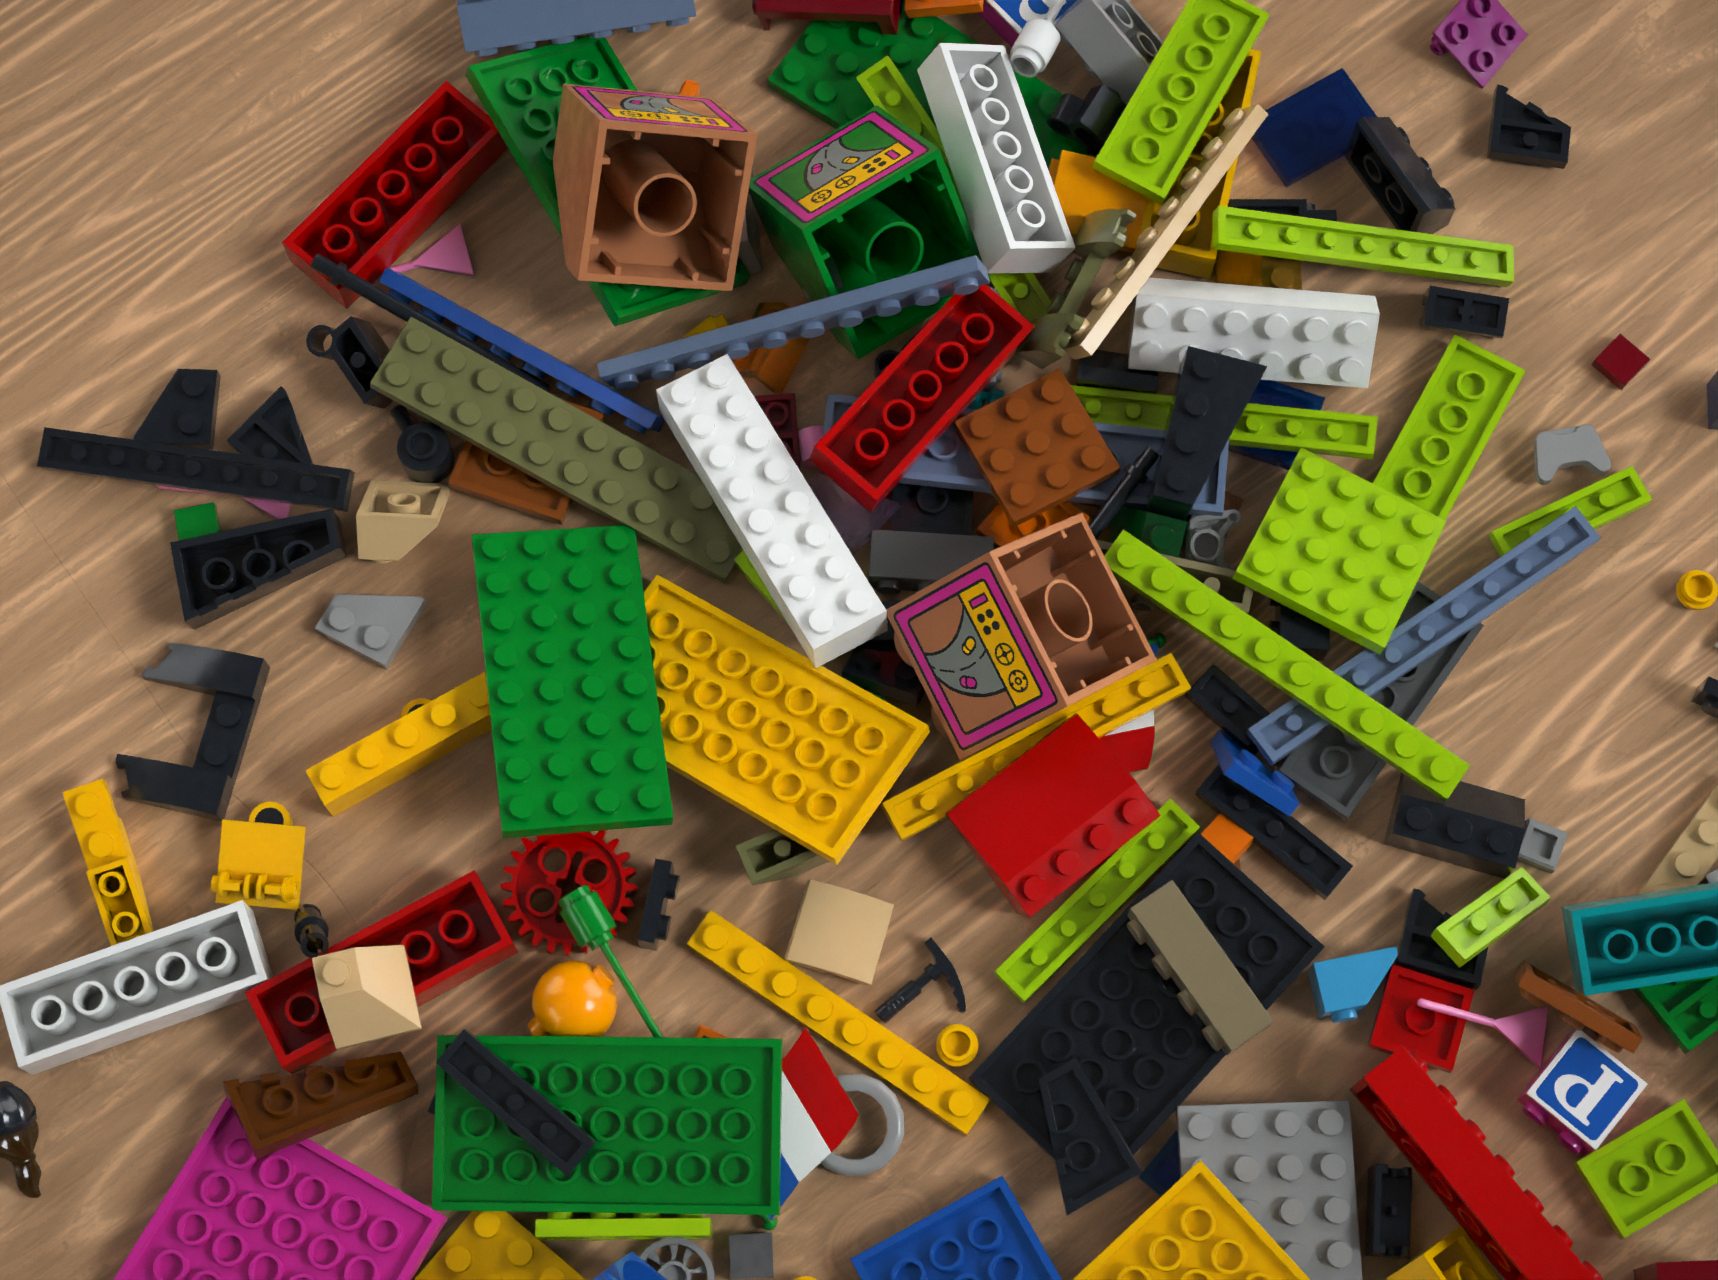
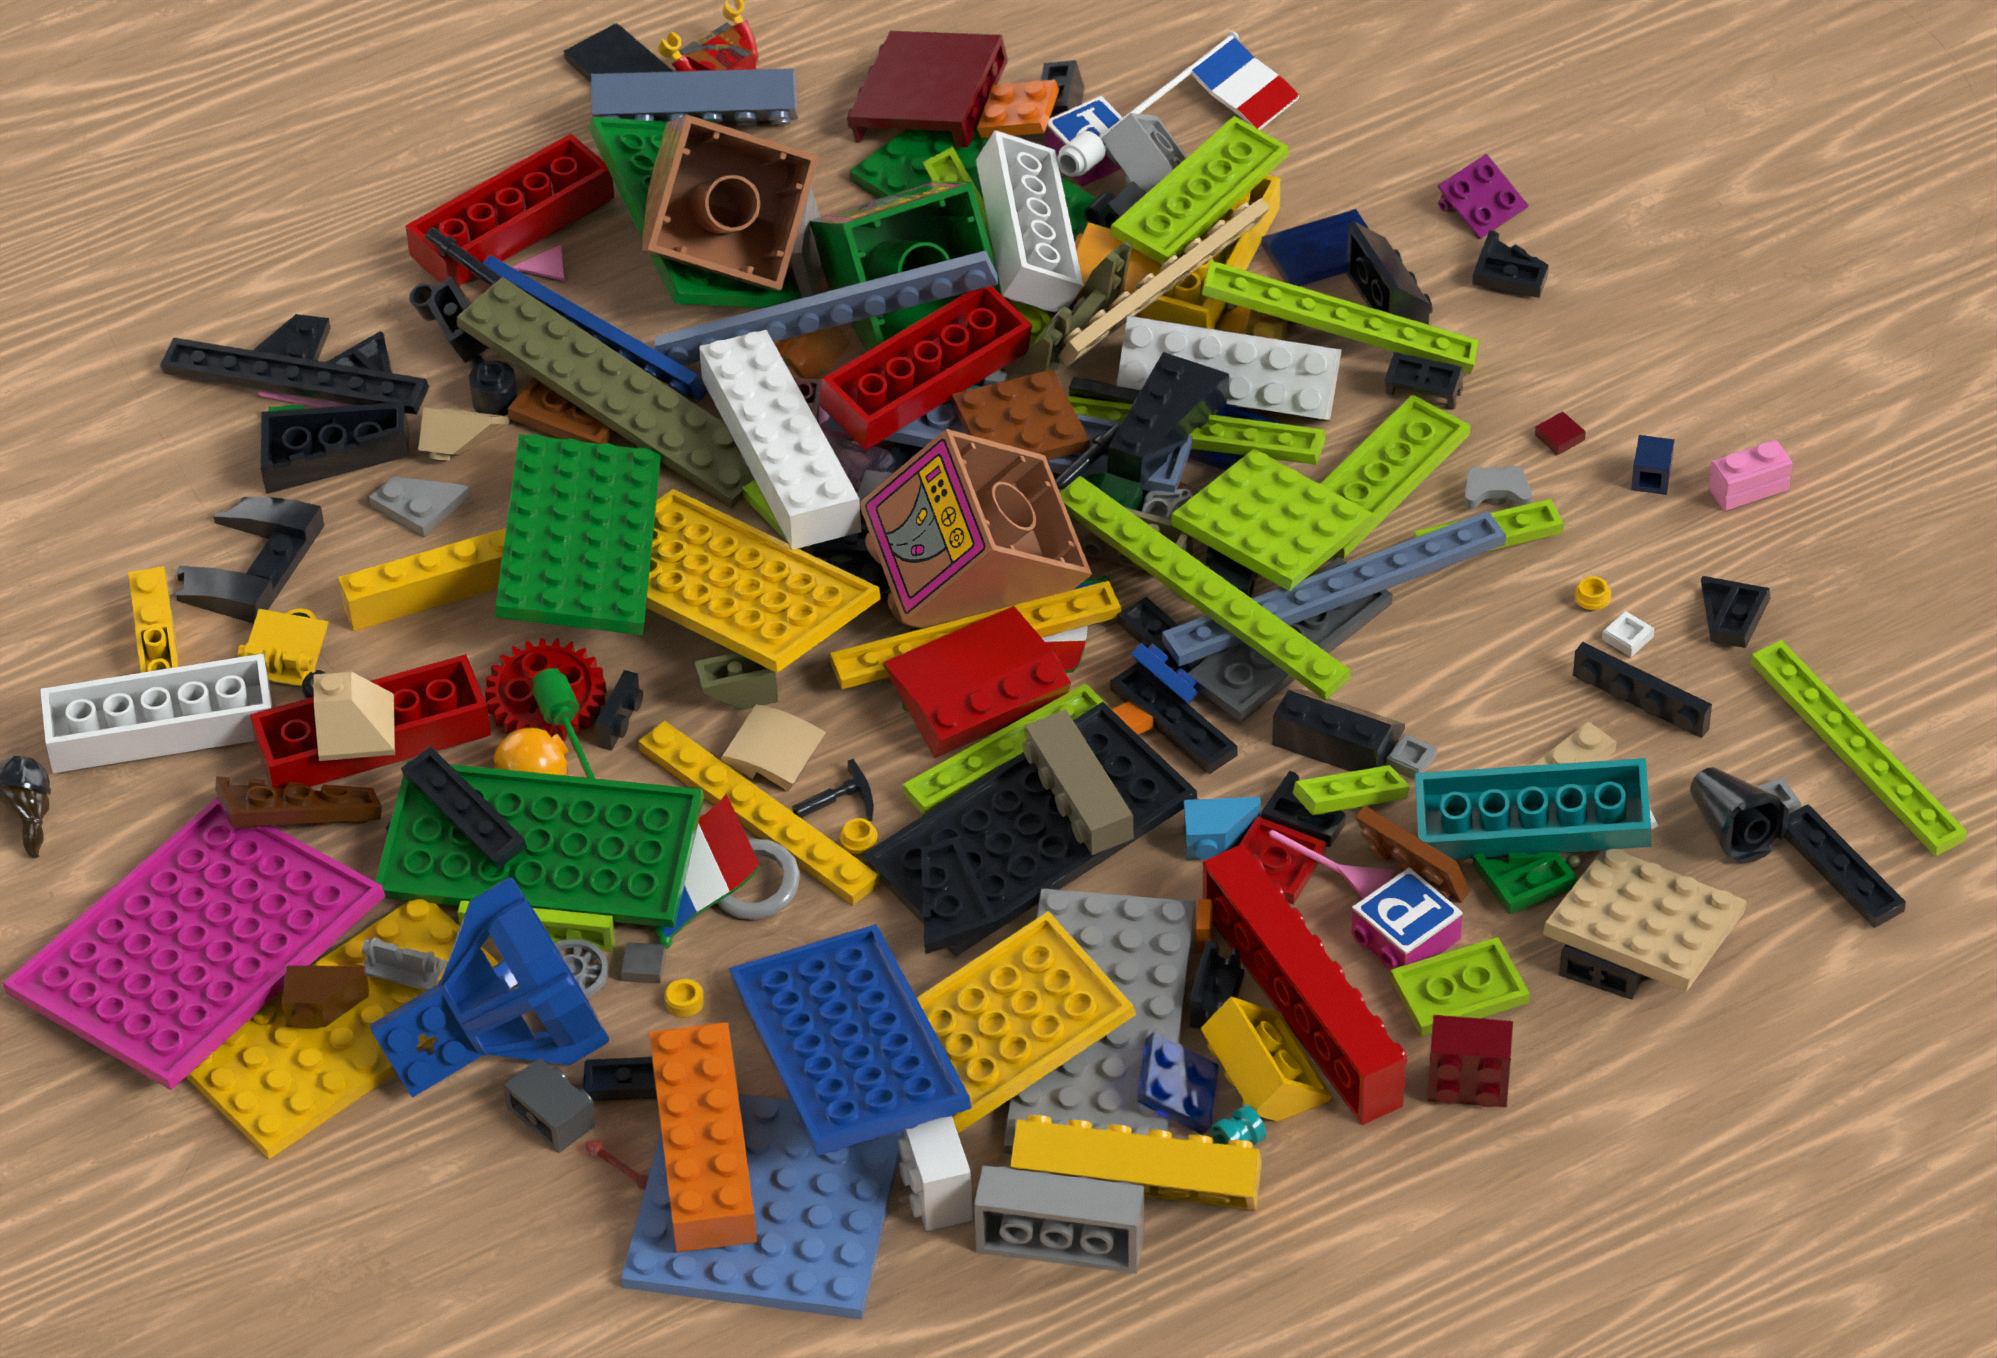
camera: 10 degrees right, 25 degrees down
(1362, 1125) = (1204, 923): none -> orange tile

